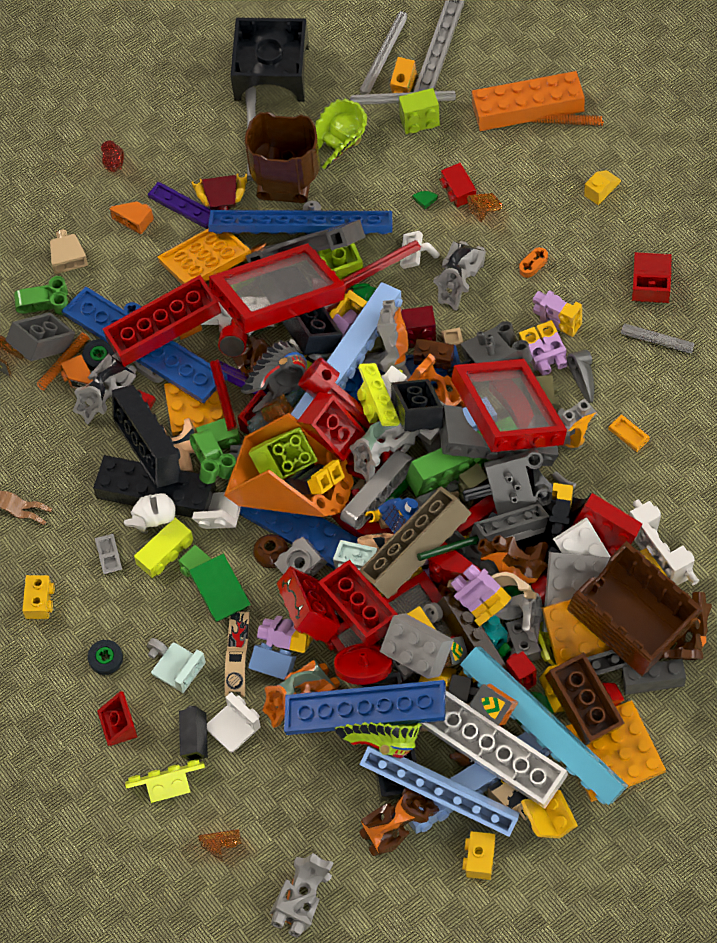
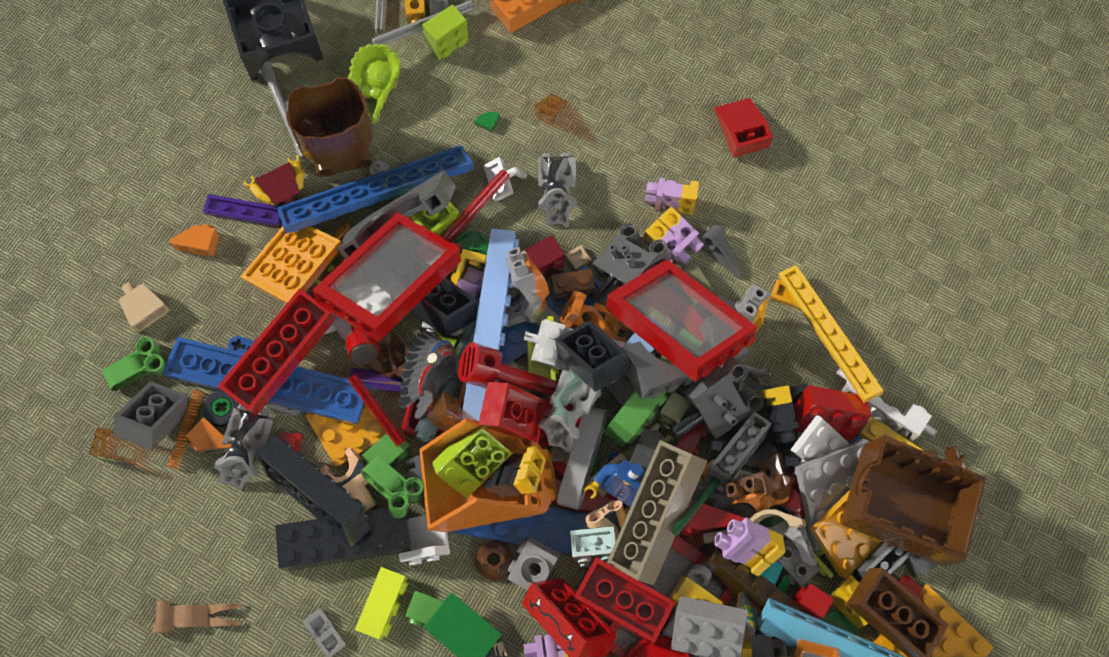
camera: 30 degrees left, 10 degrees up
(112, 156) = (148, 183): clear red connector -> none
(151, 512) = (355, 573): white piece -> none
(375, 397) = (545, 362): neon yellow bracket -> none
(457, 184) = (515, 96): red brick -> none
(530, 260) = (619, 150): orange beam -> none
(600, 186) = (652, 52): yellow slope -> none
(638, 466) = (830, 334): none -> yellow plate
(657, 338) = (775, 188): light grey axle -> none

